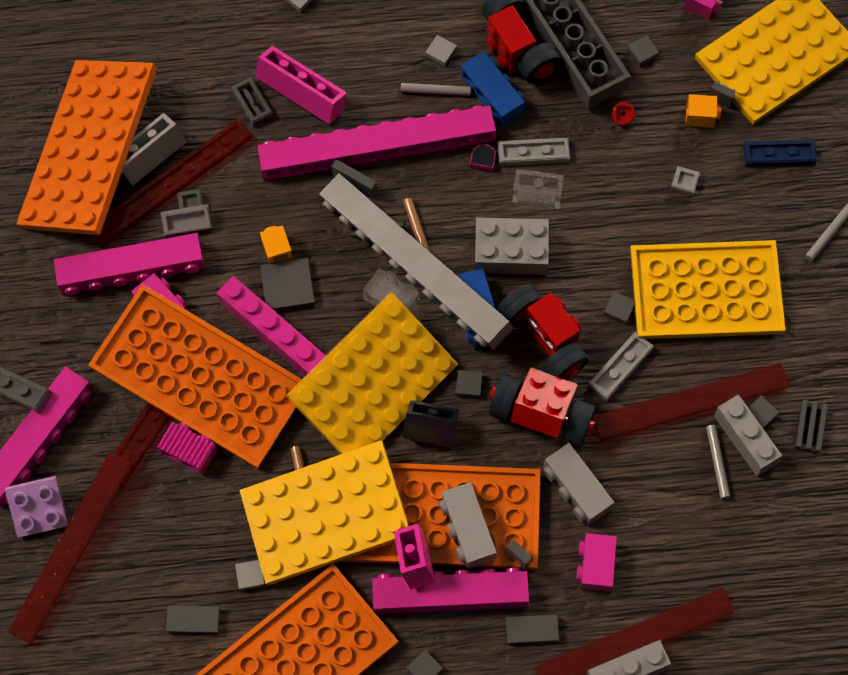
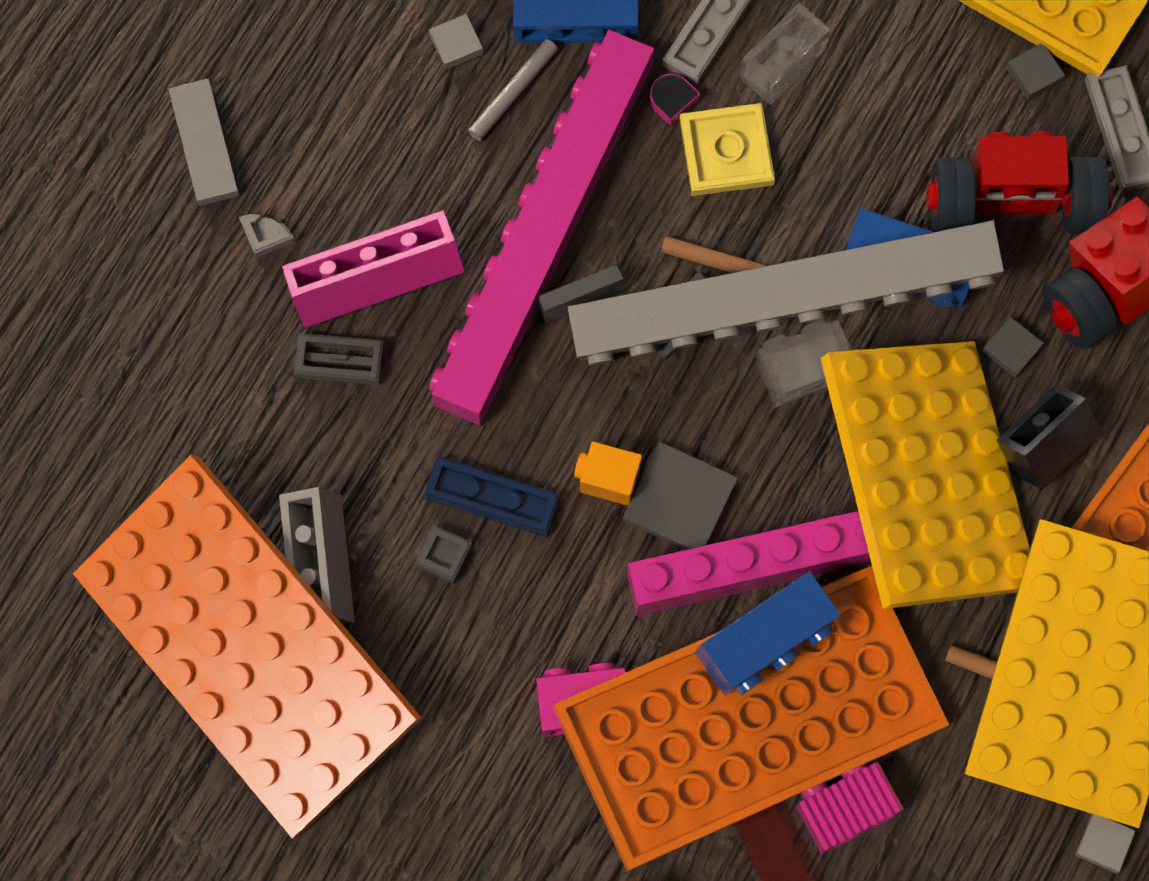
camera: 55 degrees left, 5 degrees up
(129, 264) = (486, 707): dark pink brick -> none
(172, 182) = (387, 545): clear red tile -> none
(186, 220) = (471, 577): light grey tile -> none
(232, 205) = (492, 496): none -> dark blue tile
(238, 354) = (768, 635): none -> blue brick
(288, 34) = (265, 234): none -> light grey tile
(475, 197) = (727, 149): none -> light yellow tile
(512, 246) = (846, 148): light grey brick -> none

